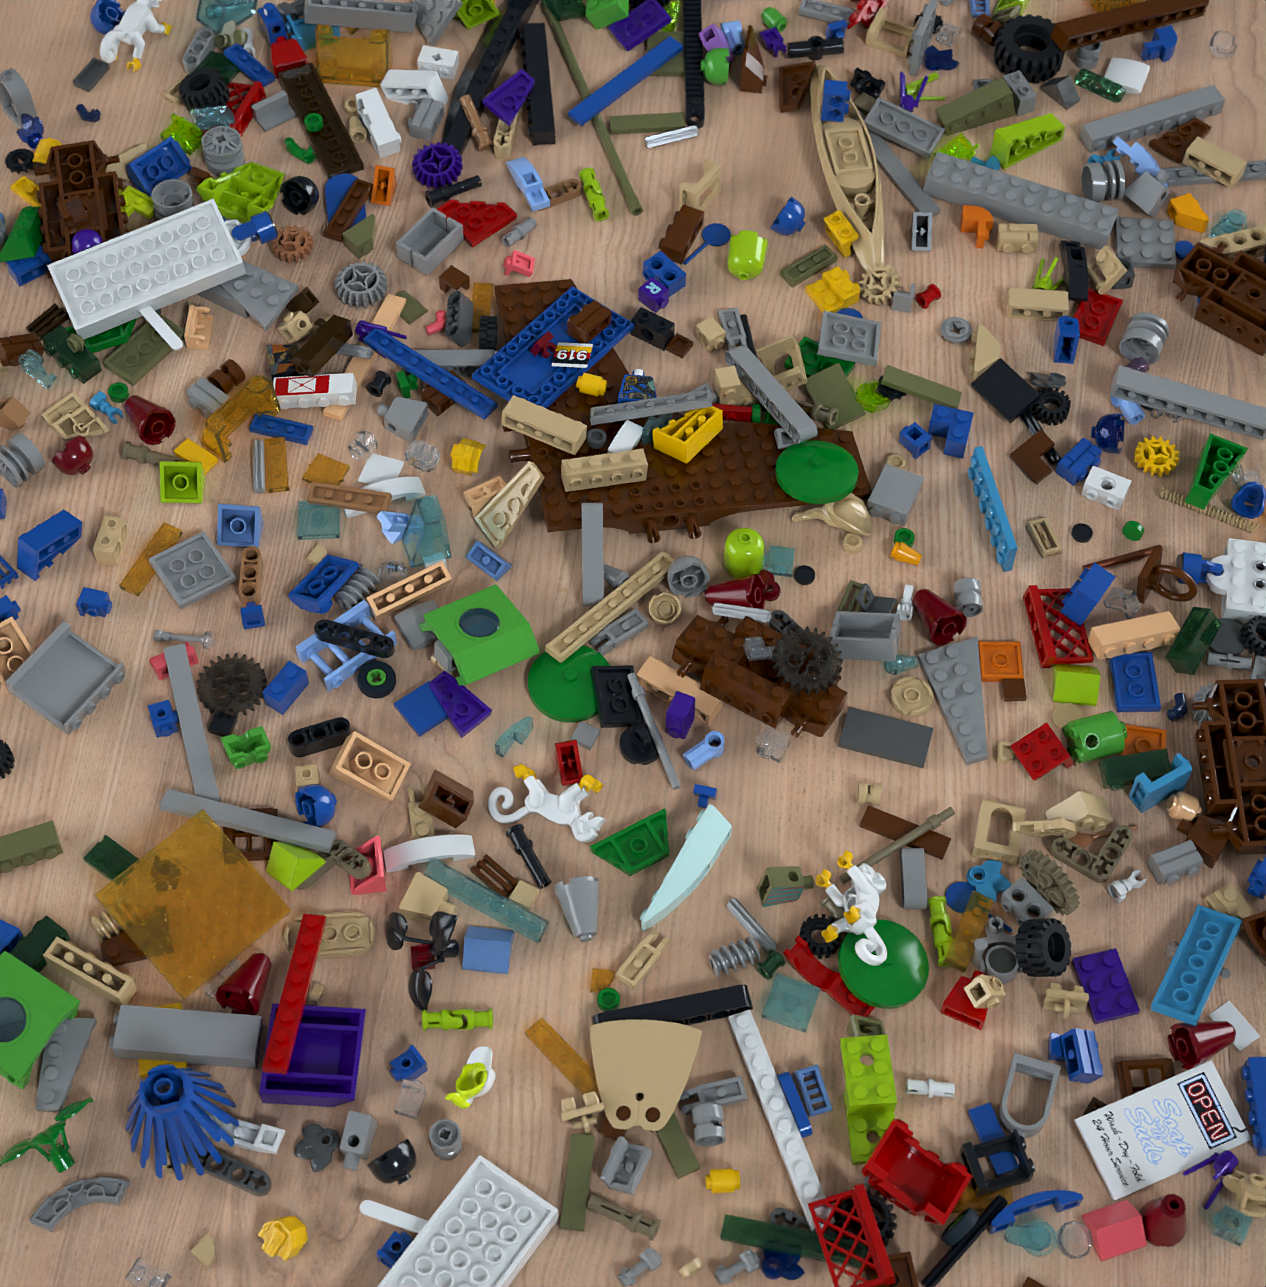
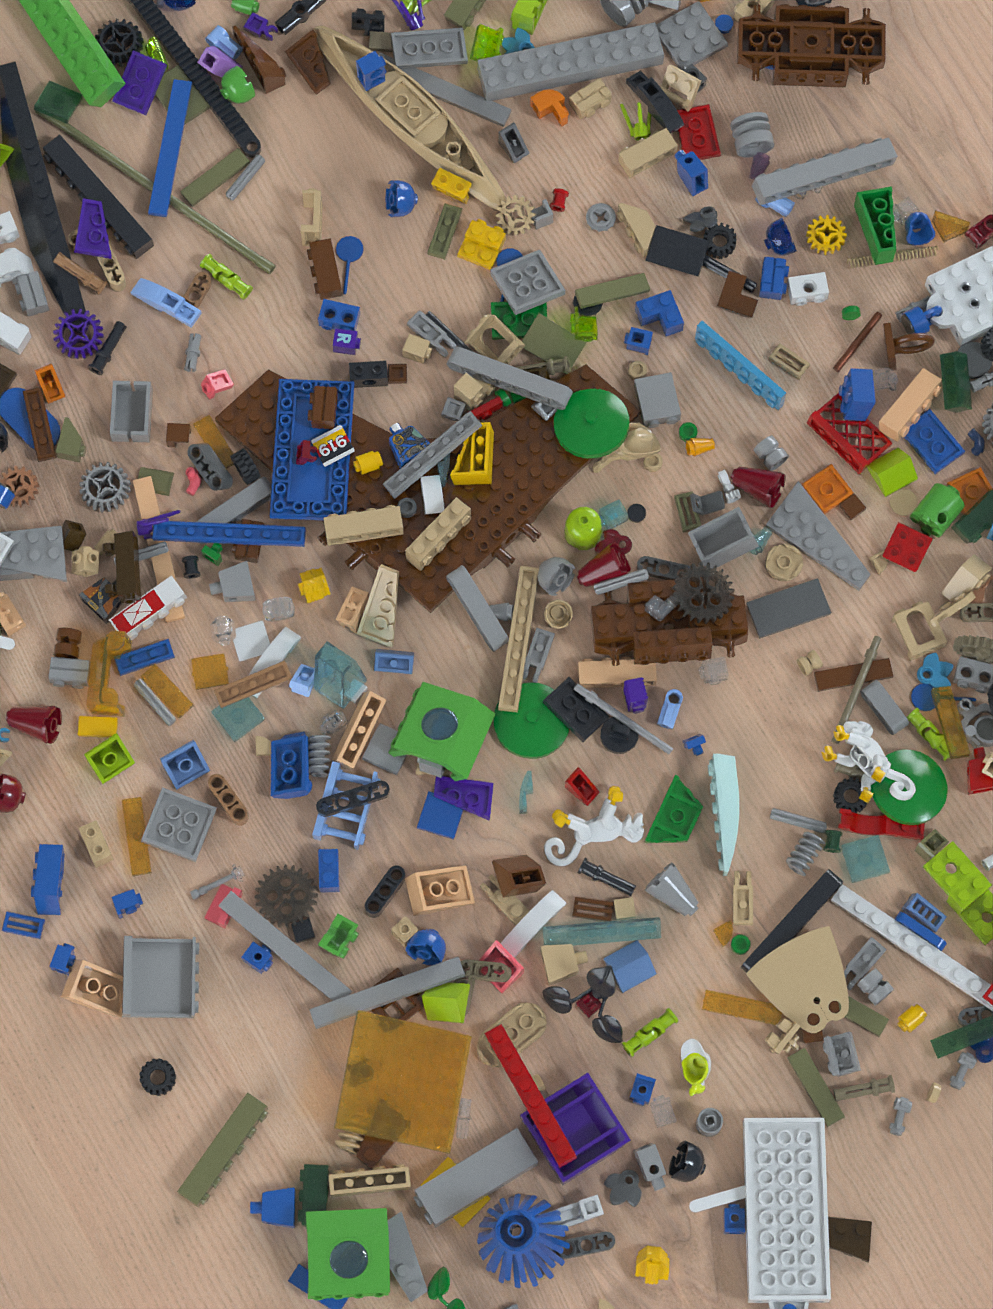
camera: 35 degrees left, 15 degrees up
(109, 858) = (309, 1089): clear green plate -> none
(145, 455) = (57, 754): dark tan pin -> none
(246, 986) = (487, 1113): dark red cone -> none
(252, 616) = (255, 830): blue tile -> none
(373, 670) = (381, 823): black bush -> none
(479, 218) = (148, 362): red plate -> none
(585, 735) = (574, 755): light grey tile -> none
(746, 254) = (394, 258): lime cylinder -> none
(783, 885) = (801, 776): olive torso -> none
(1082, 533) = (813, 338): black piece -> none

